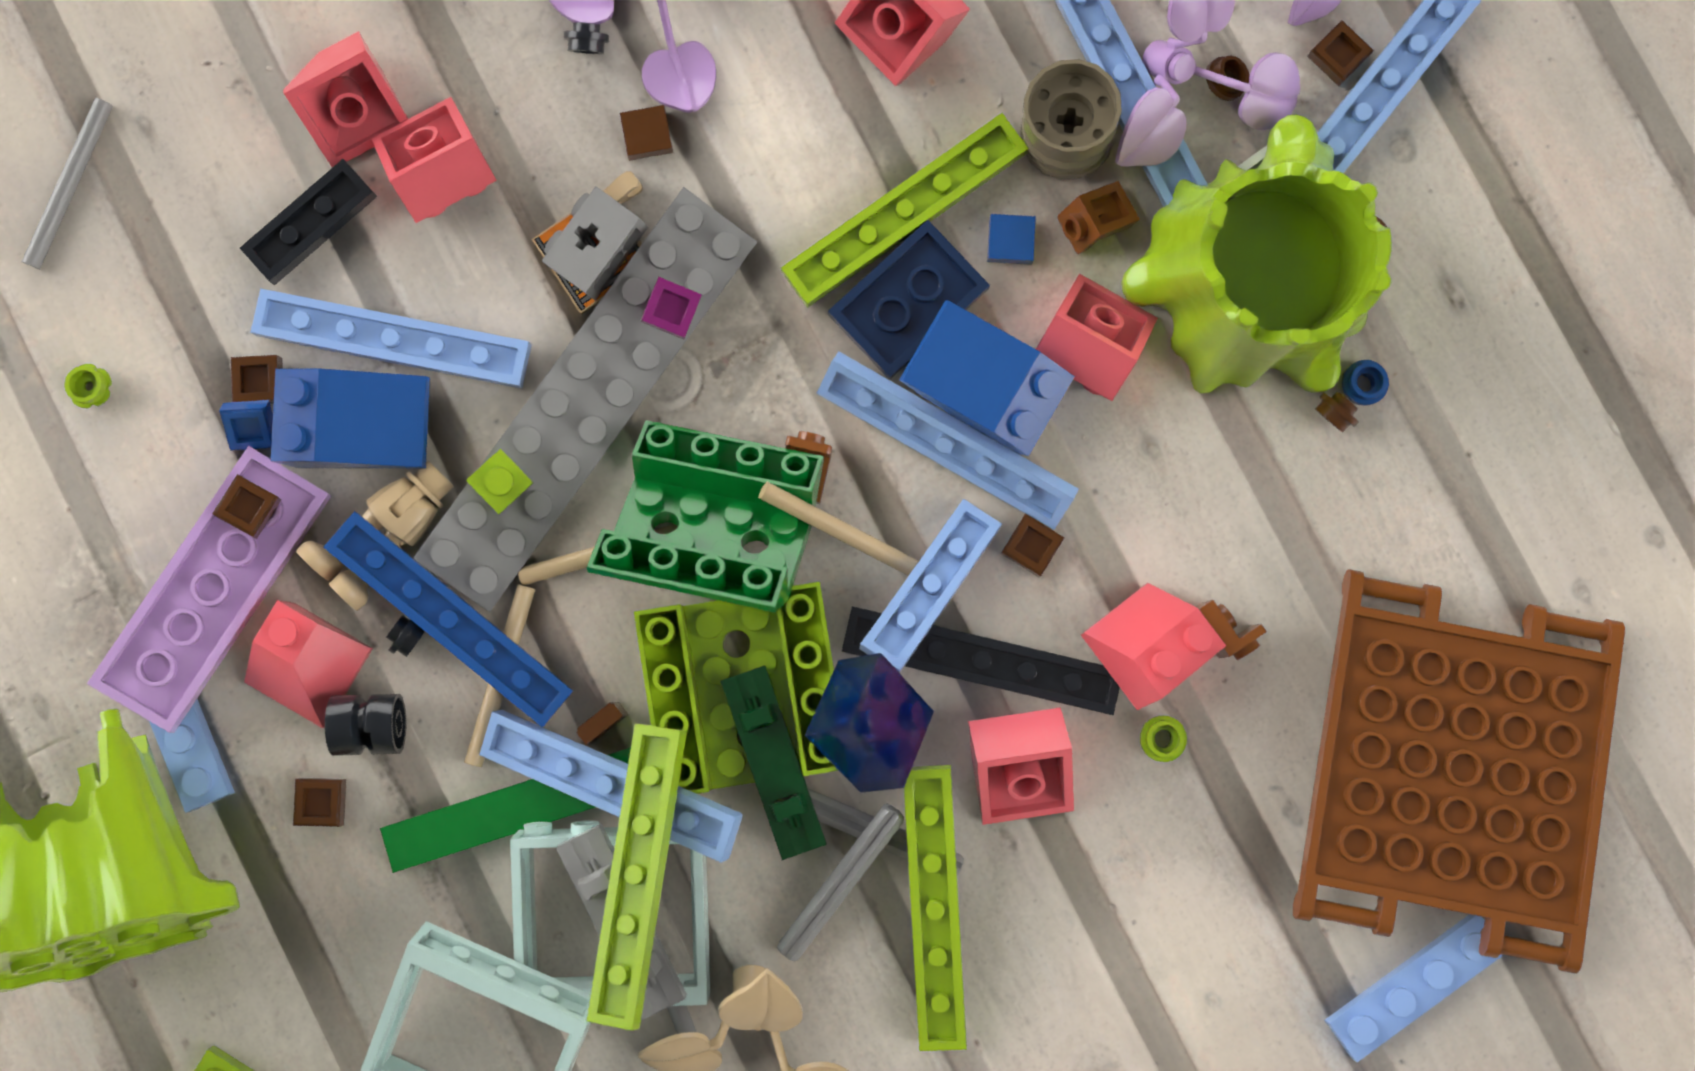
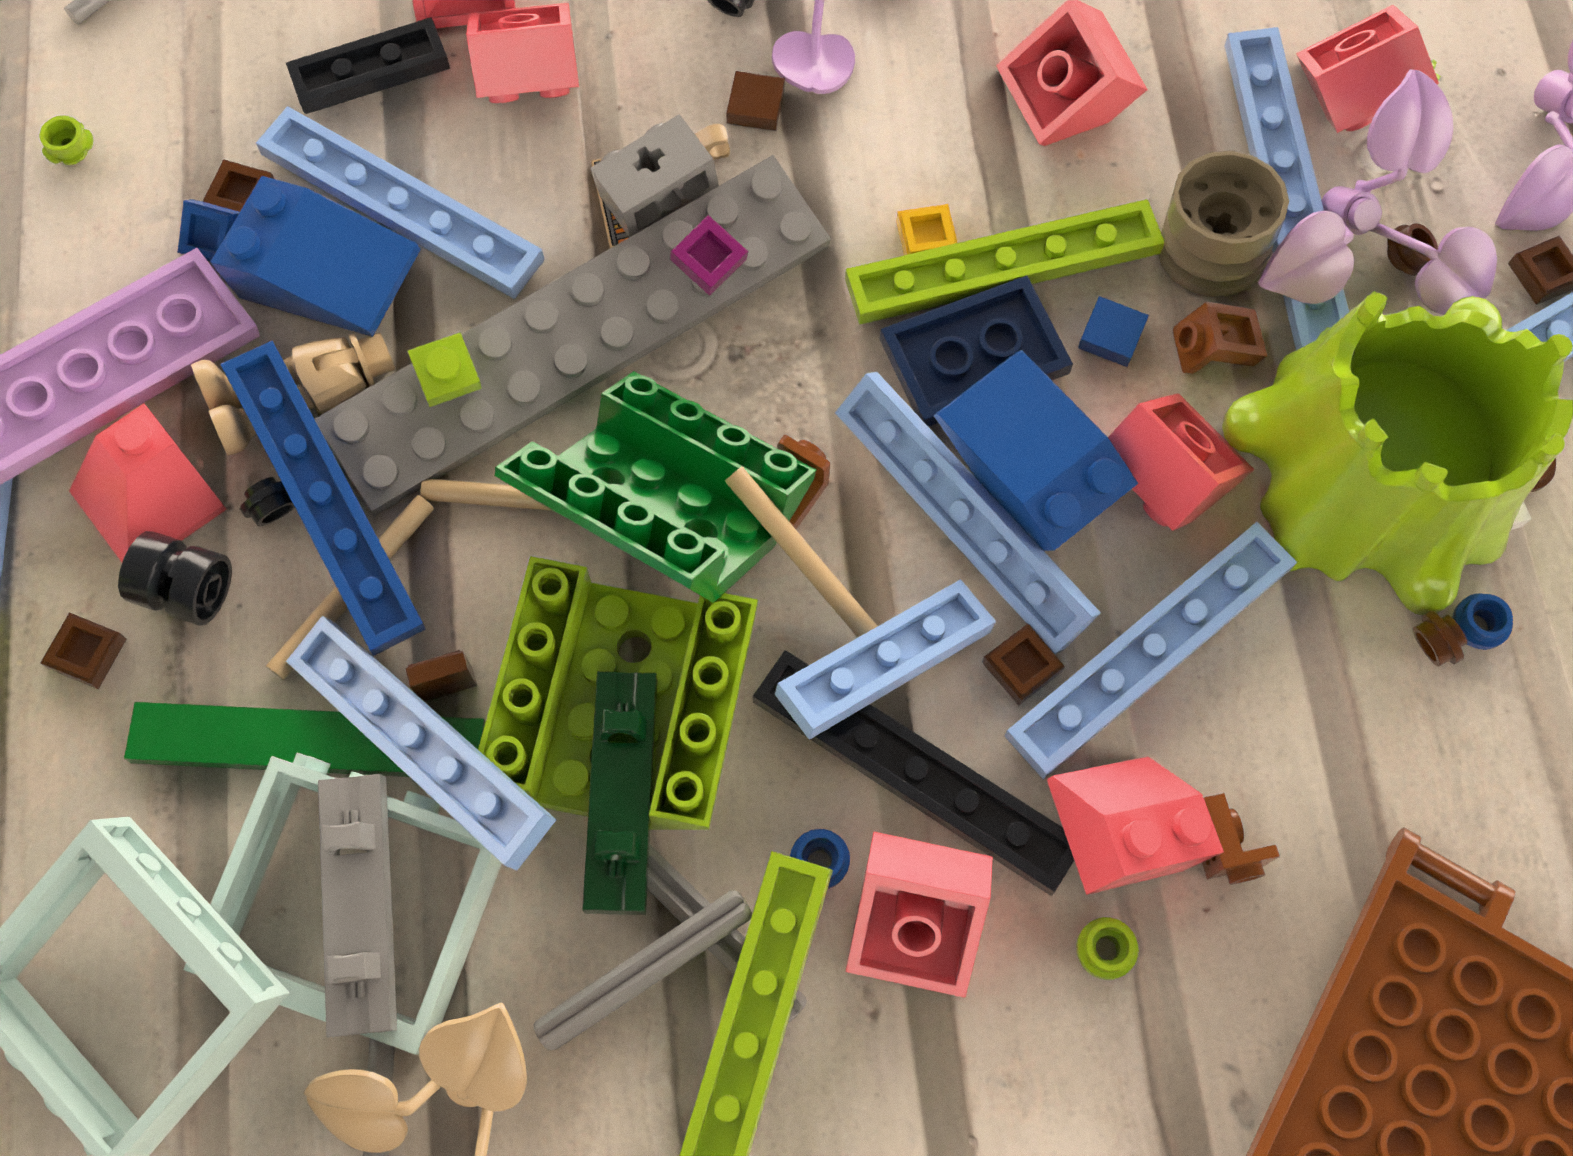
camera: 20 degrees right, 15 degrees down
(246, 506) = (162, 302): reddish brown tile -> none
(636, 877) = (392, 846): lime plate -> none
(831, 204) = (925, 228): none -> yellow tile
(870, 723) = (753, 779): clear blue brick -> none
(946, 741) = (828, 842): none -> blue plate
(1125, 499) = (1149, 650): none -> light blue plate

